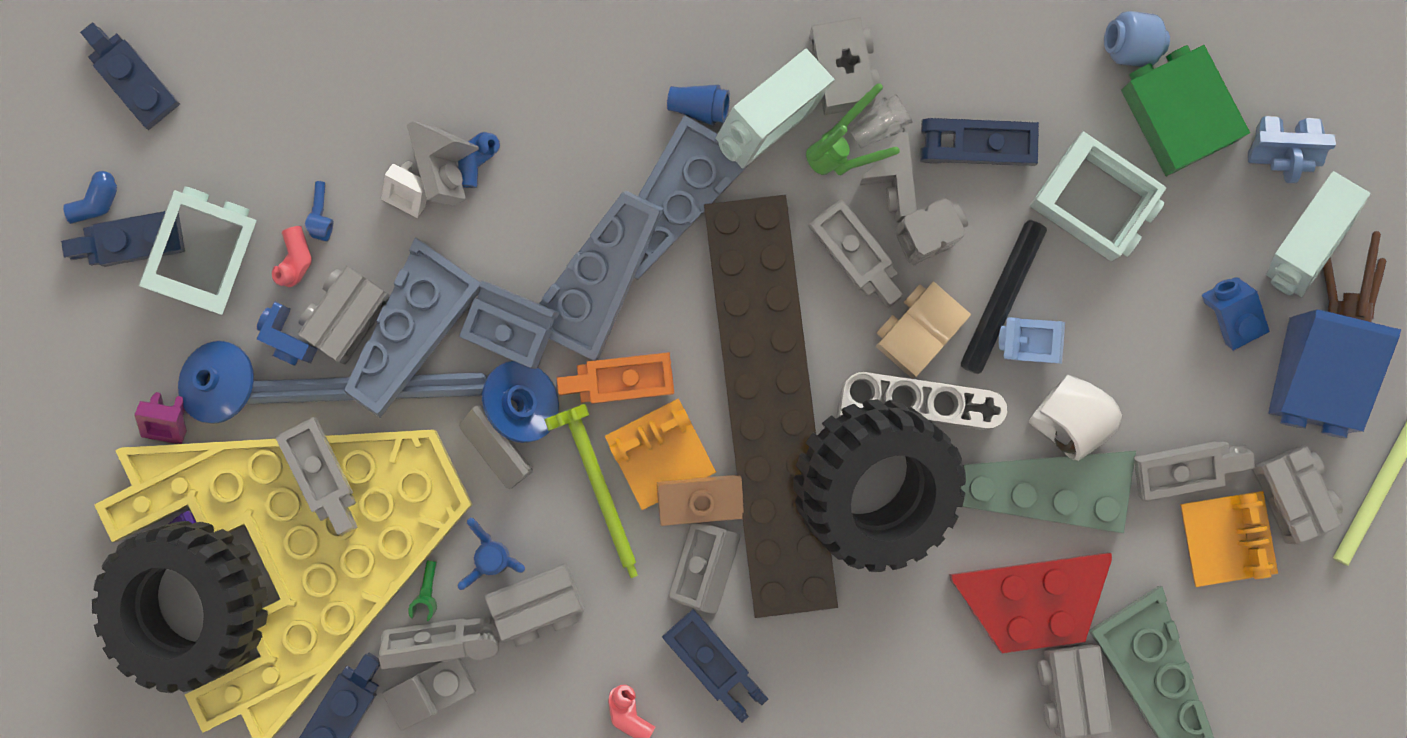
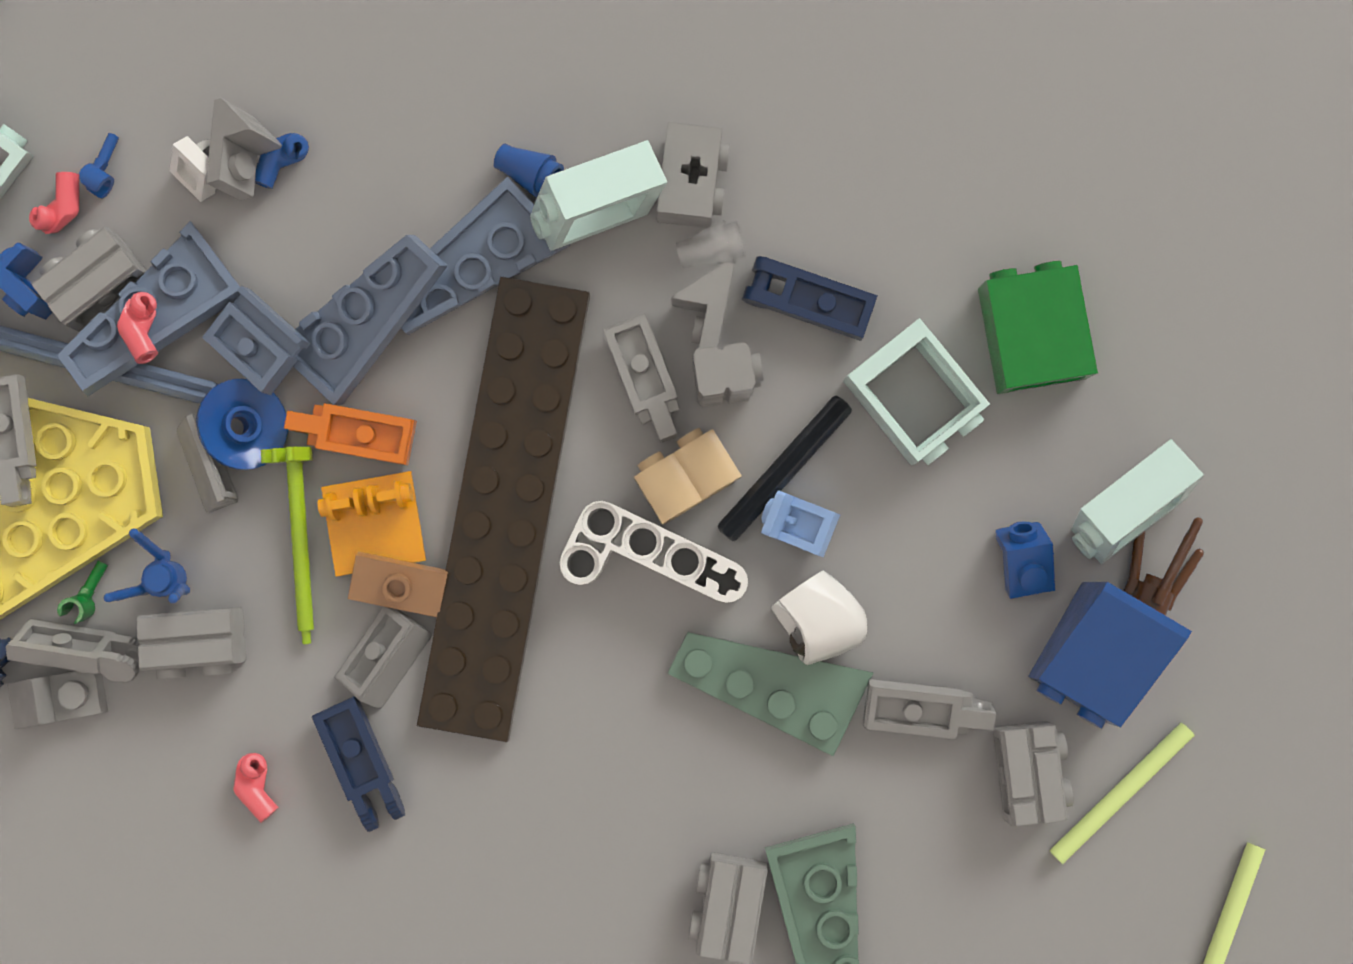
camera: 25 degrees right, 0 degrees up
(404, 342) = (135, 325): none -> coral arm
(832, 149) = (651, 258): bright green plant -> none
(917, 512) = (591, 679): black tyre -> none
(1036, 601) = (719, 799): red wing -> none
(1136, 39) = (1009, 238): medium blue head -> none
(1229, 539) = (944, 797): light orange hinge -> none
(1291, 151) = (1136, 405): medium blue hips -> none

